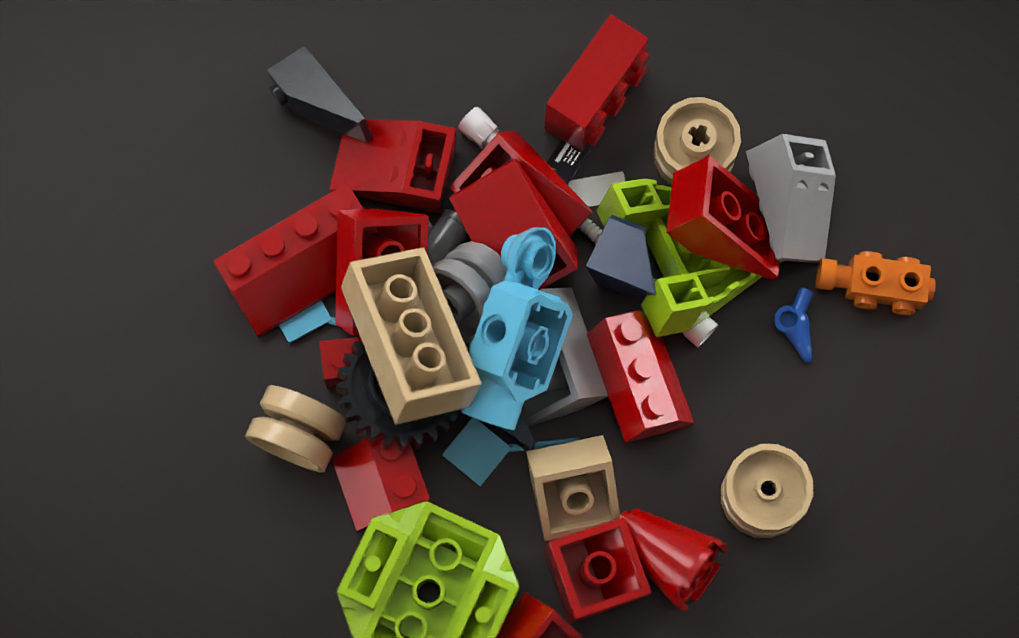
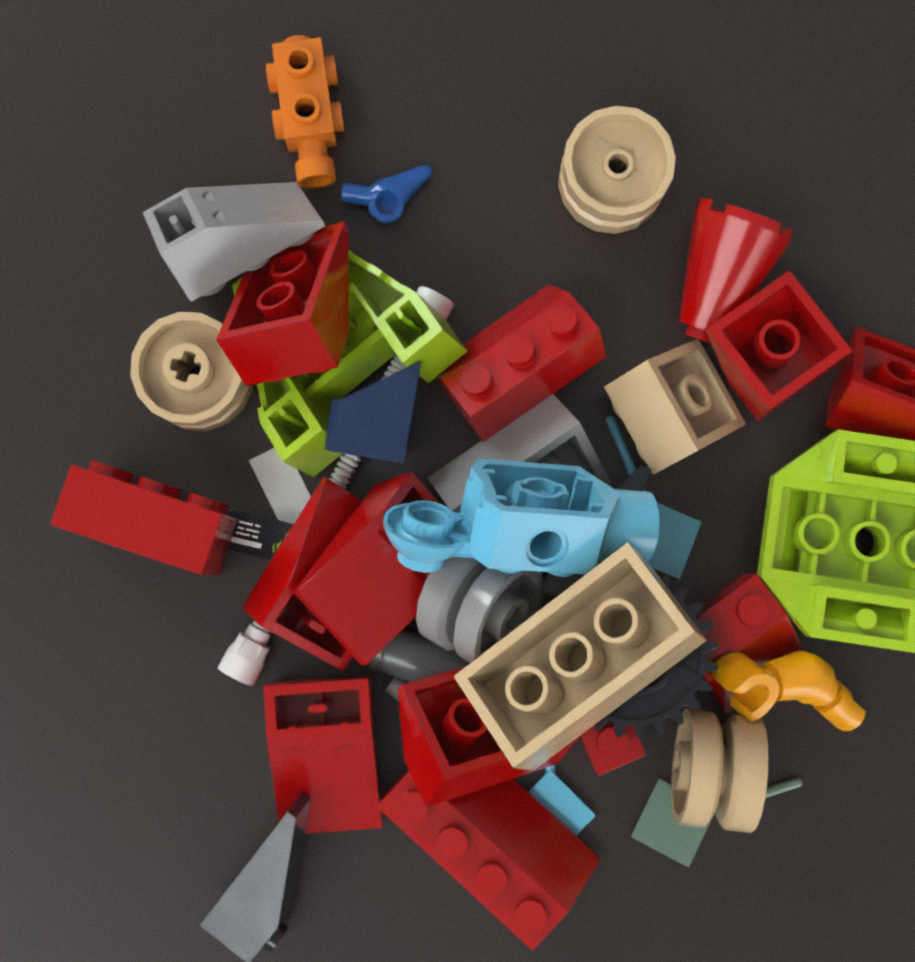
camera: 105 degrees left, 10 degrees up
(248, 399) = (679, 842): none -> sand green piece
(345, 502) = (790, 677): none -> light orange piece

